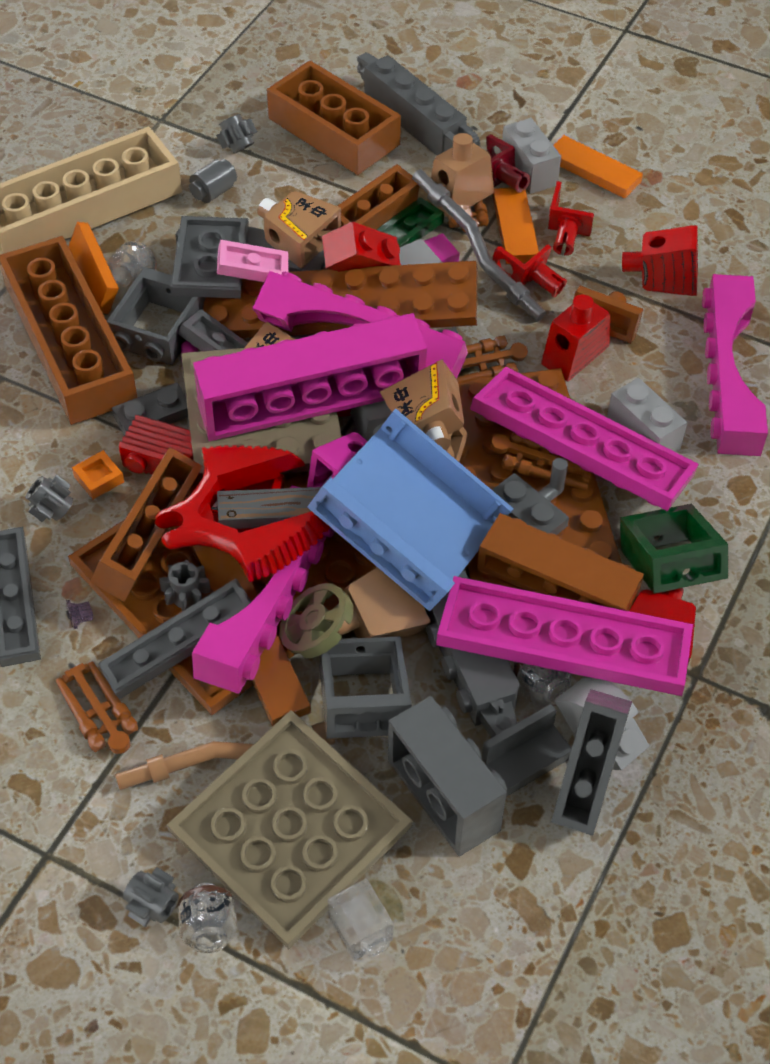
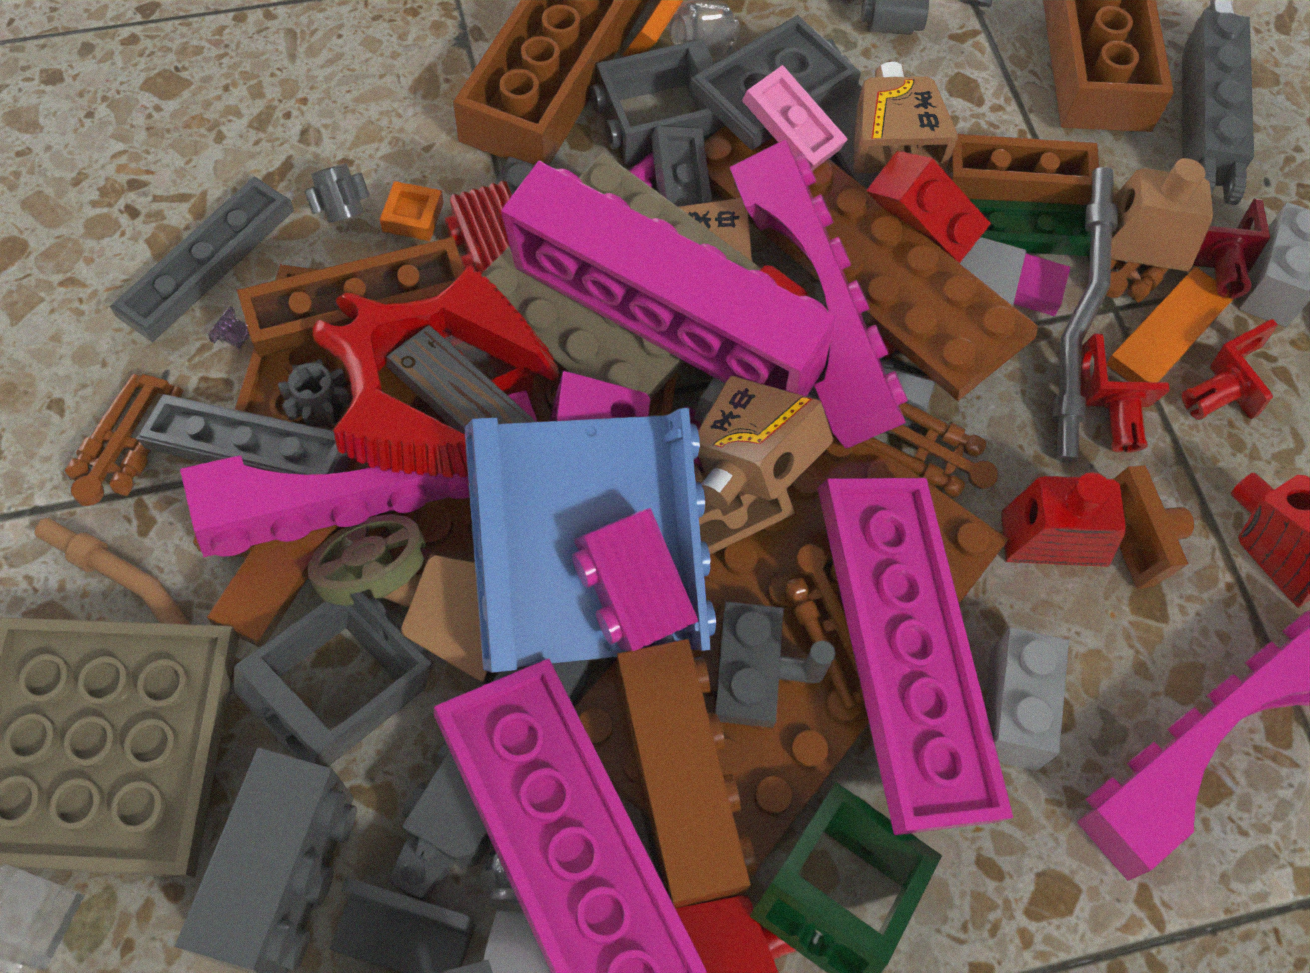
camera: 45 degrees right, 10 degrees up
(451, 508) = (633, 581): none -> dark pink brick

